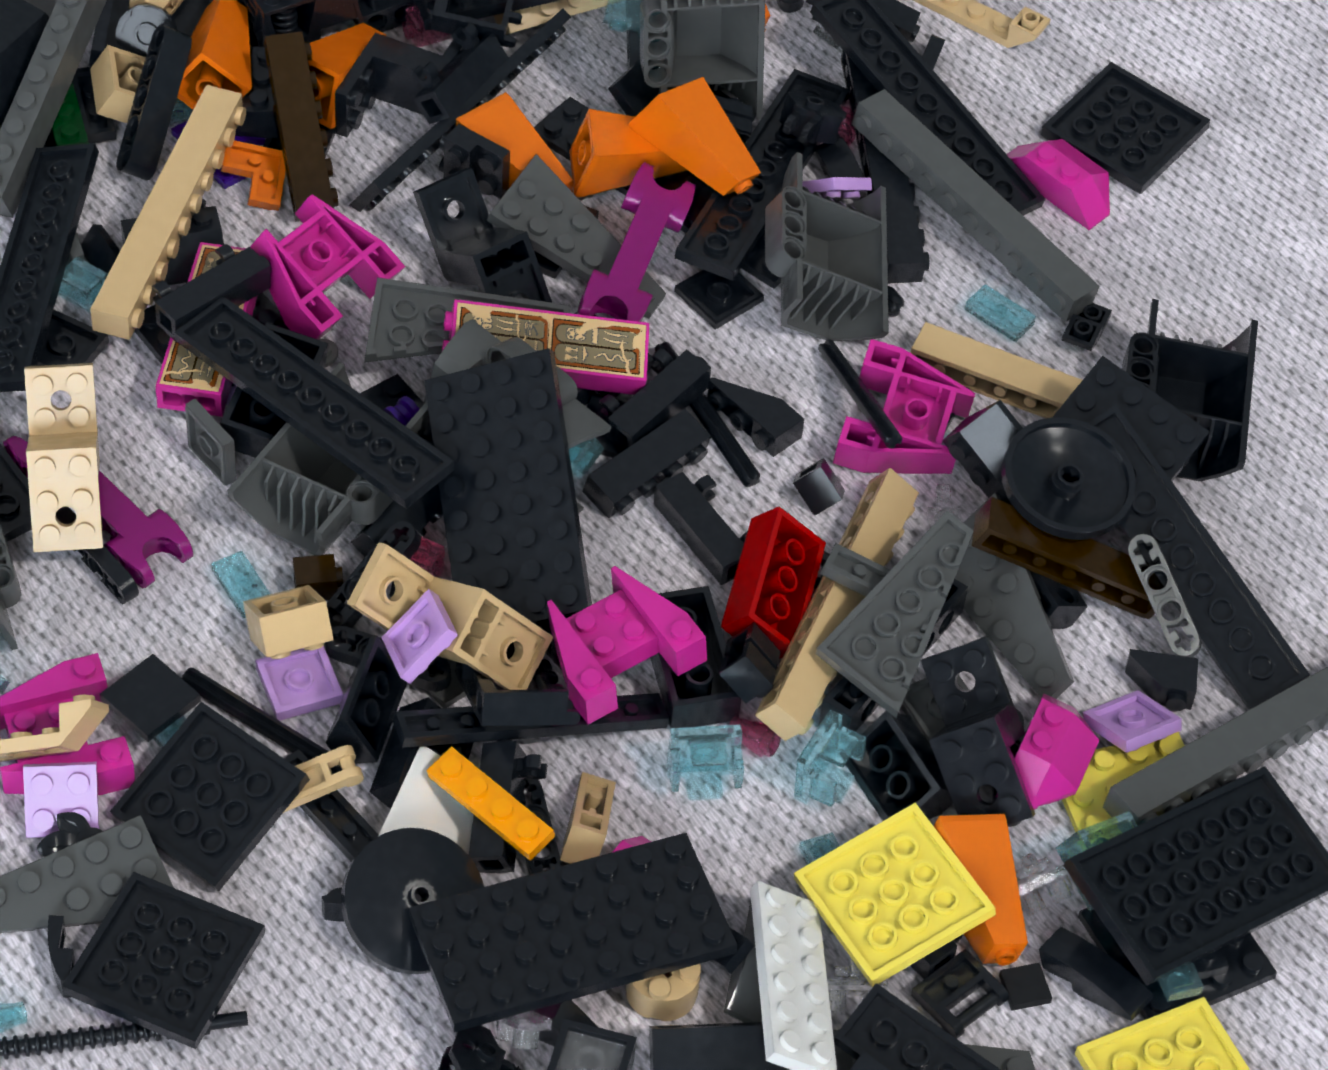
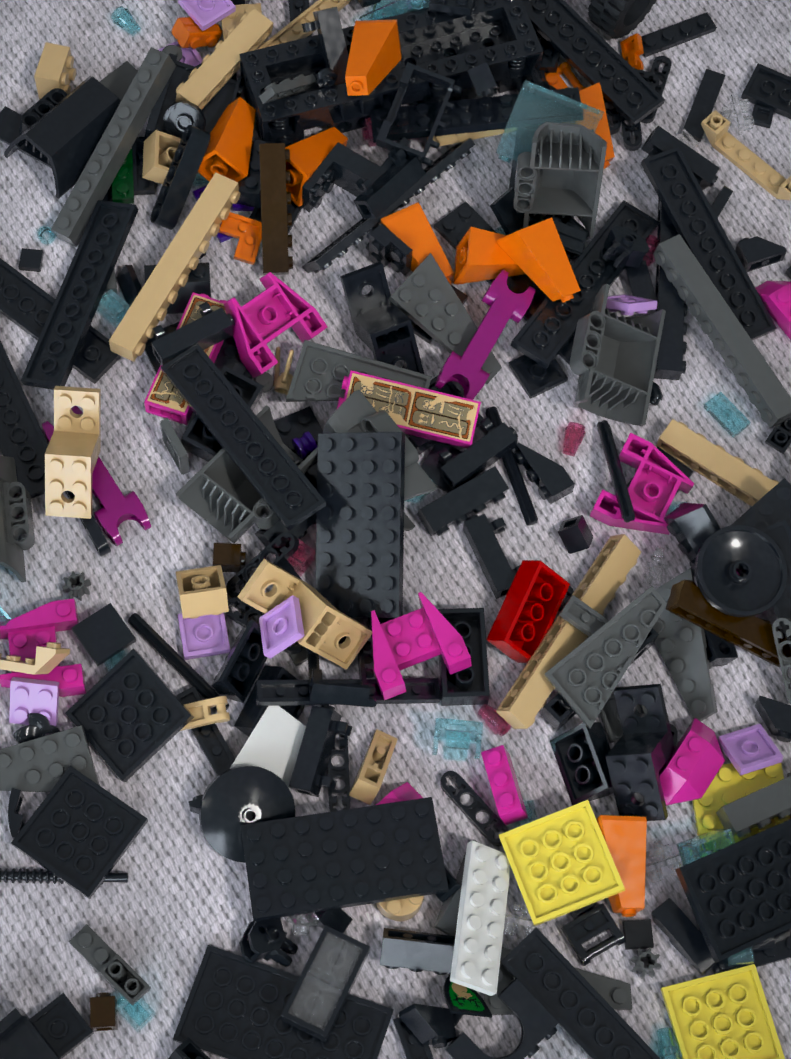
camera: 10 degrees right, 15 degrees up
(94, 640) = (78, 591): none -> dark grey gear
(239, 580) = (178, 551): clear light blue plate -> none
(353, 348) = (283, 382): none -> tan plant
(491, 803) = (308, 753): light orange plate -> none
(750, 663) = (499, 673): black piece -> none
(752, 852) = (477, 806): none -> black beam
(787, 812) = (504, 785): none -> dark pink brick
(788, 367) = (573, 437): none -> clear pink cone
(815, 770) = (537, 753): clear light blue panel -> none
(1001, 110) = (758, 253): none -> black slope
(1043, 1027) = (639, 965): none -> dark grey gear

